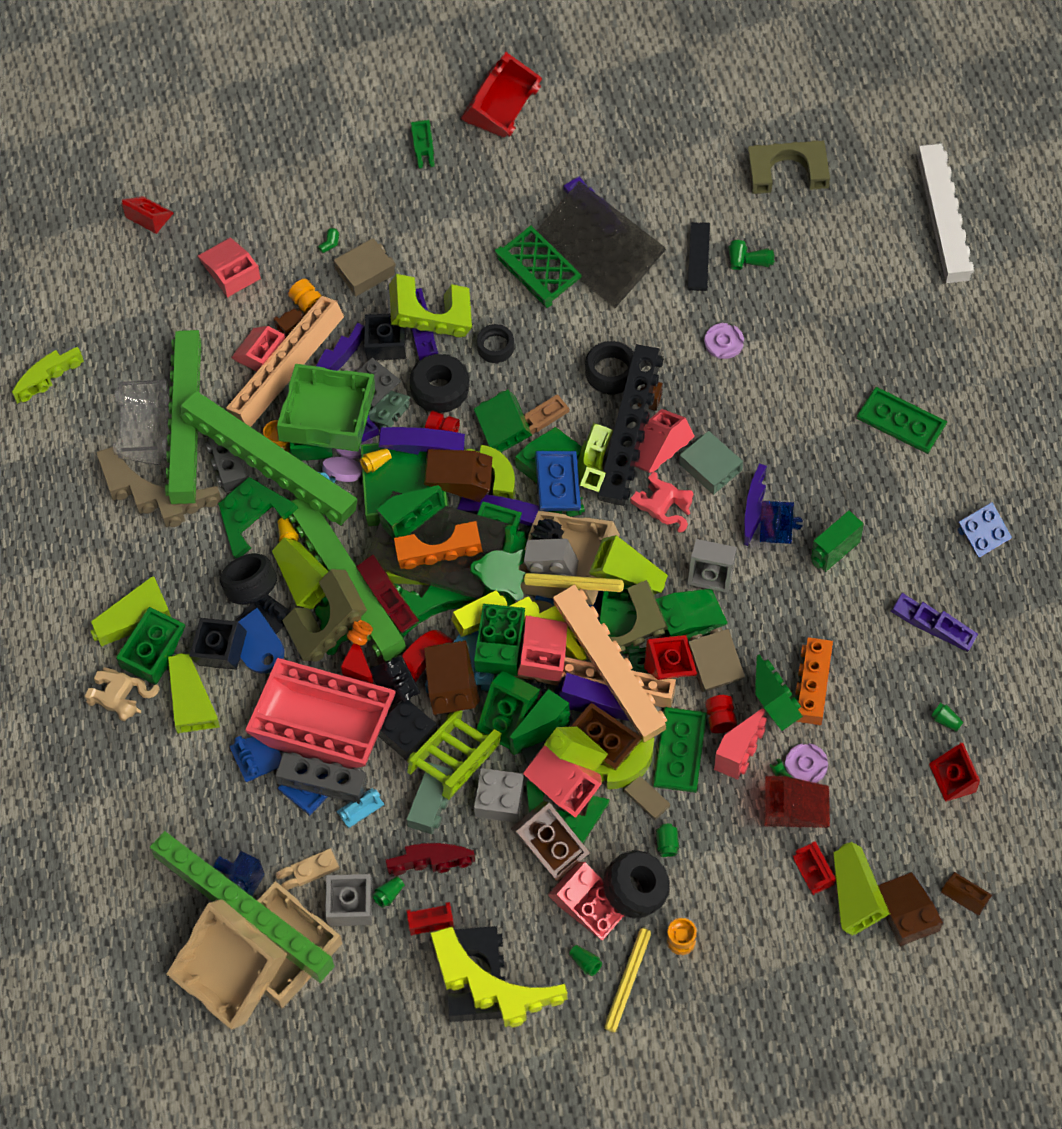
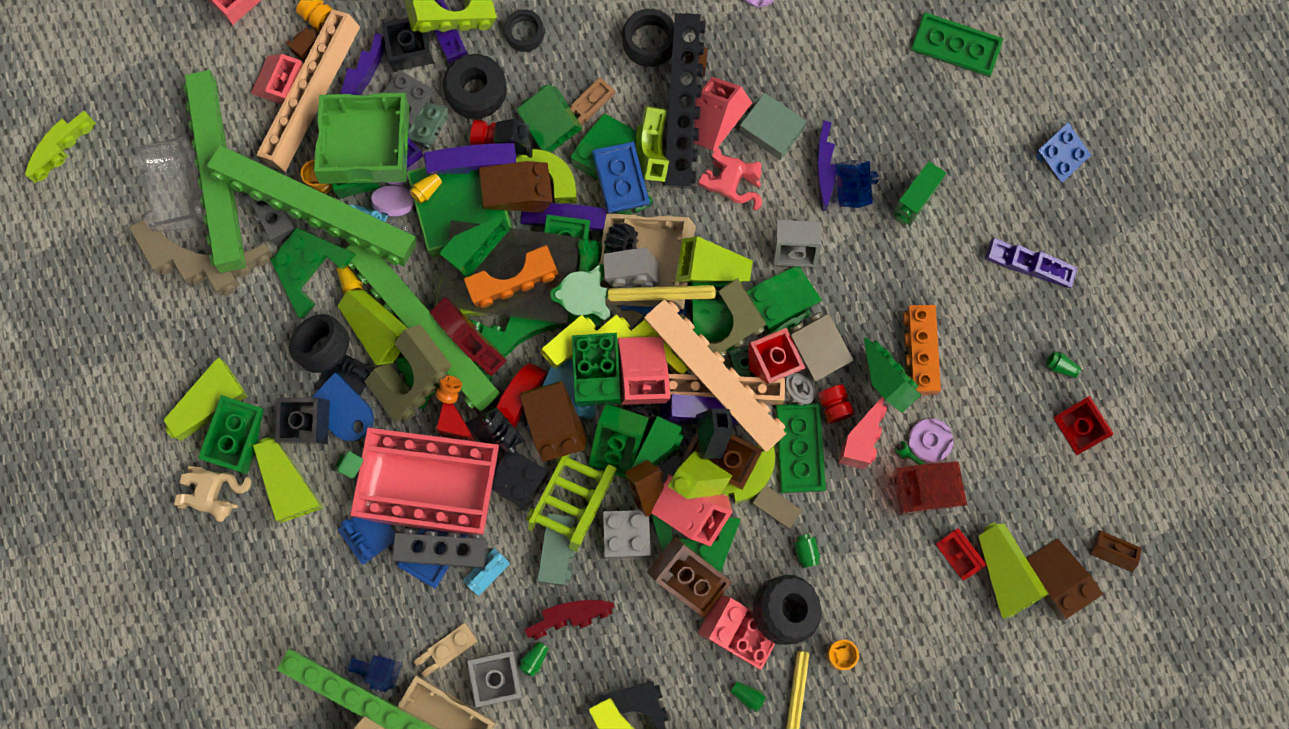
camera: 10 degrees left, 15 degrees up
(252, 687) = (348, 464): none -> green slope
(430, 919) = (581, 680): red hinge -> none
(467, 424) = (512, 132): none -> black slope
(524, 747) = (645, 485): none -> reddish brown slope
(598, 711) = (714, 432): none -> black slope
(695, 698) = (805, 392): none -> light grey gear

